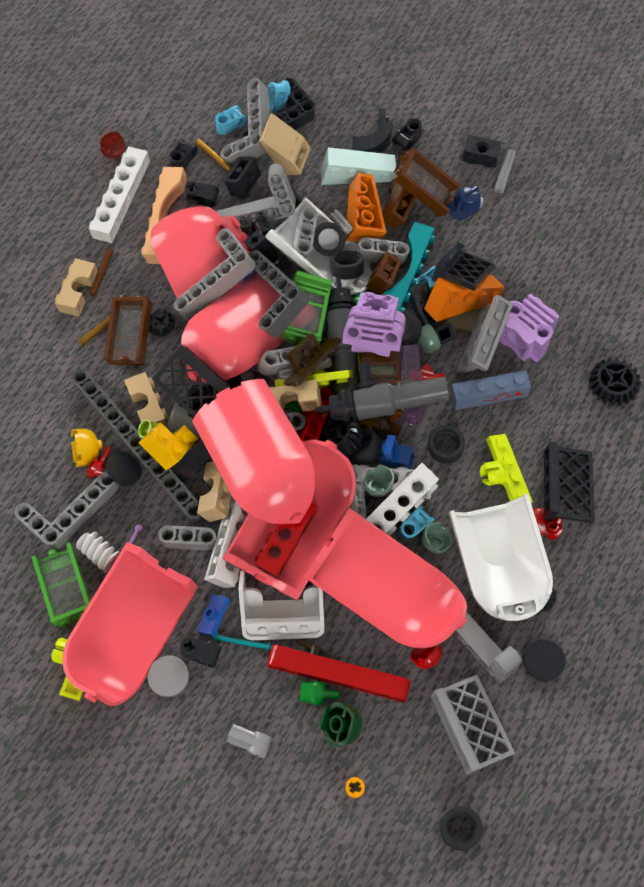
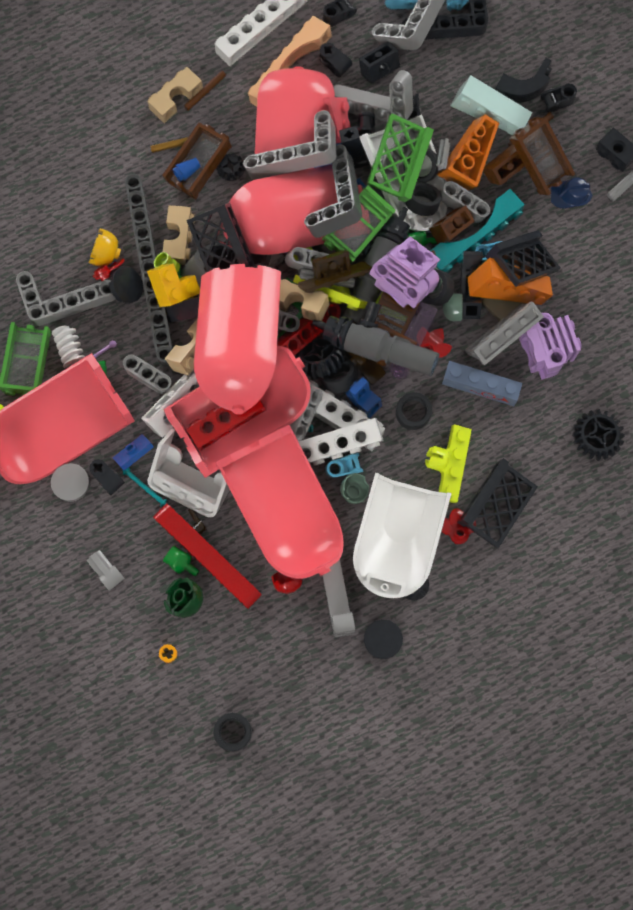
camera: 25 degrees right, 10 degrees up
(122, 342) = (186, 169): none -> blue cone
(213, 155) = (366, 20): pearl gold bar -> none
(285, 145) = (433, 52): tan slope -> none
(324, 238) = (415, 161): none -> bright green fence
(379, 481) = (331, 413): sand green hair -> none
(456, 732) = (274, 656): light grey fence -> none

